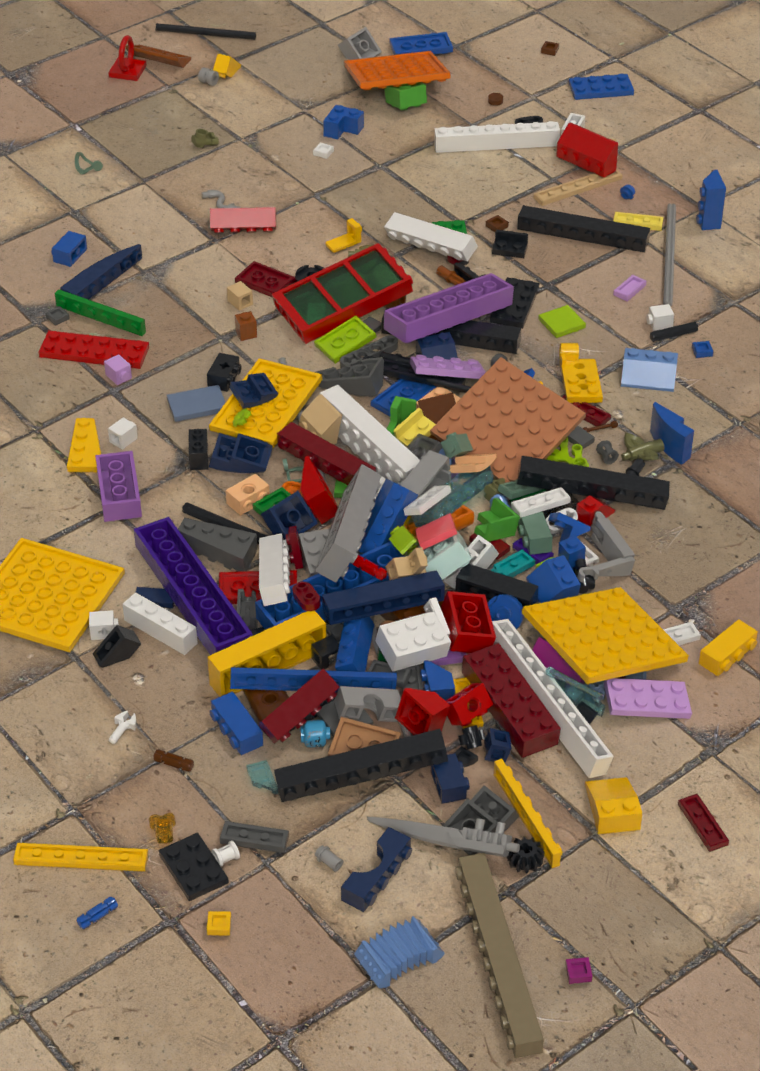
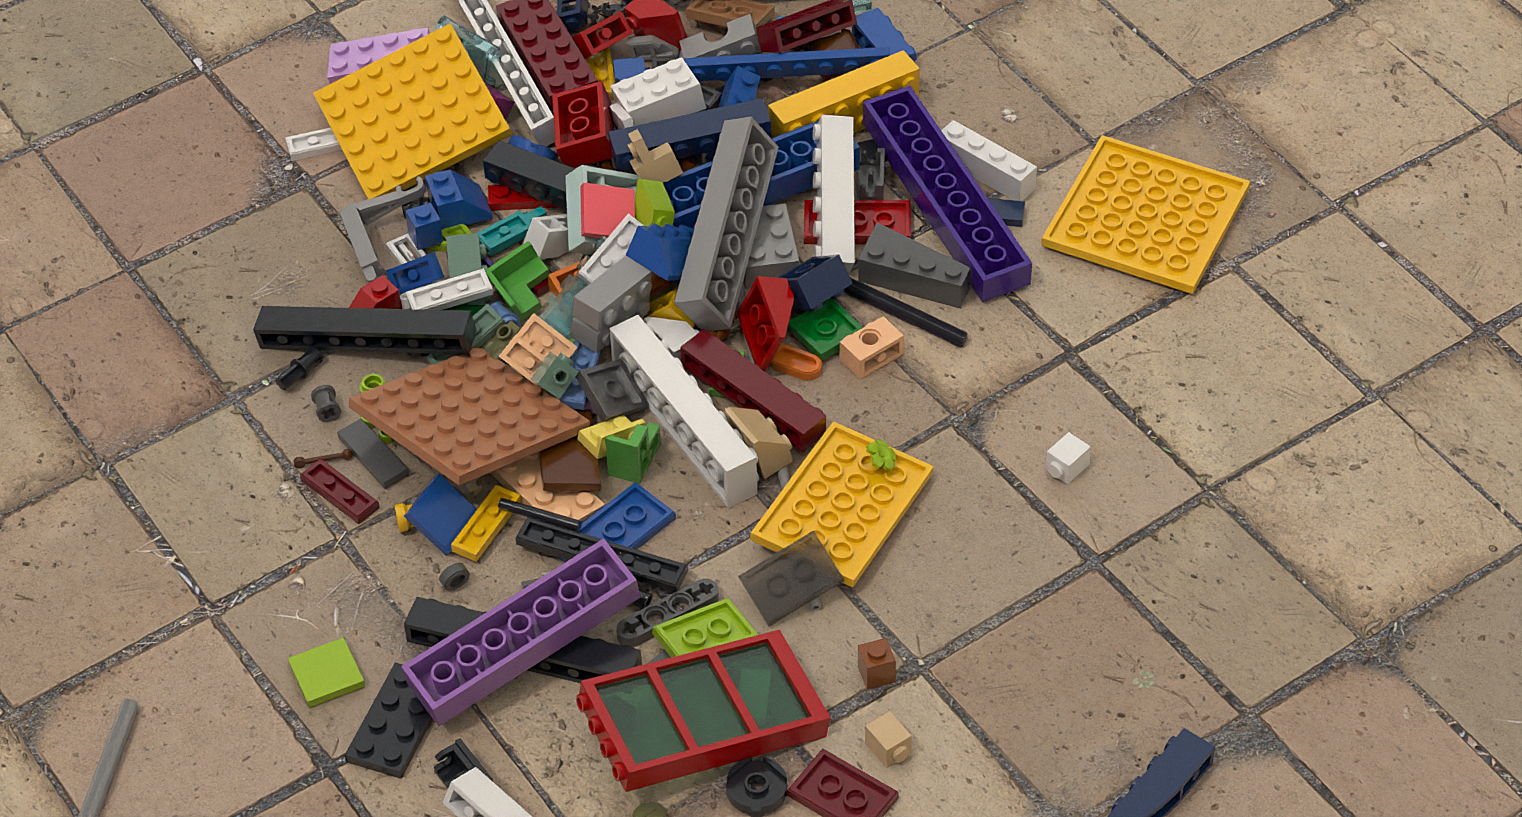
camera: 175 degrees left, 5 degrees up
(57, 315) = (1213, 720): dark grey tile -> none
(84, 446) = (1124, 447): yellow wing -> none
(92, 348) = (1137, 640): red plate -> none
(100, 312) = (1129, 705): green plate -> none
(101, 624) = (1061, 165): white brick -> none
(117, 646) = (1037, 135): black slope -> none
(118, 369) = (1089, 581): lavender brick -> none
(118, 486) = (1063, 355): medium lavender brick -> none
(122, 726) = (1023, 55): white bar -> none
(173, 760) = (958, 14): reddish brown axle -> none
(195, 403) = (955, 523): sand blue tile -> none
(198, 449) = (947, 421): black brick -> none
(224, 371) = (912, 571): black brick -> none
(240, 454) = (886, 415): dark blue slope -> none
(254, 390) = (862, 507): dark blue slope -> none
(285, 464) = (813, 380): sand green piece -> none
(296, 358) = (791, 578): none -> clear smoke tile
(296, 554) = (805, 238): dark red plate -> none
(306, 596) = (789, 135): dark red plate -> none
(359, 379) = (701, 544): dark grey wedge -> none
(370, 568) = (699, 170): red axle -> none
(444, 367) = (537, 545): lavender plate -> none
(449, 276) = (503, 779): dark orange axle -> none
(579, 375) = (339, 578): yellow hinge -> none
(629, 288) = (184, 748): lavender tile -> none
(639, 449) = (270, 407): olive plant -> none
(649, 369) = (211, 554): slope -> none
(660, 317) = (156, 661): white brick -> none
(673, 331) = (141, 640): black axle -> none
(673, 432) = (220, 407): blue slope -> none
(702, 349) = (107, 604): blue tile -> none
(728, 647) = (257, 115): yellow brick -> none

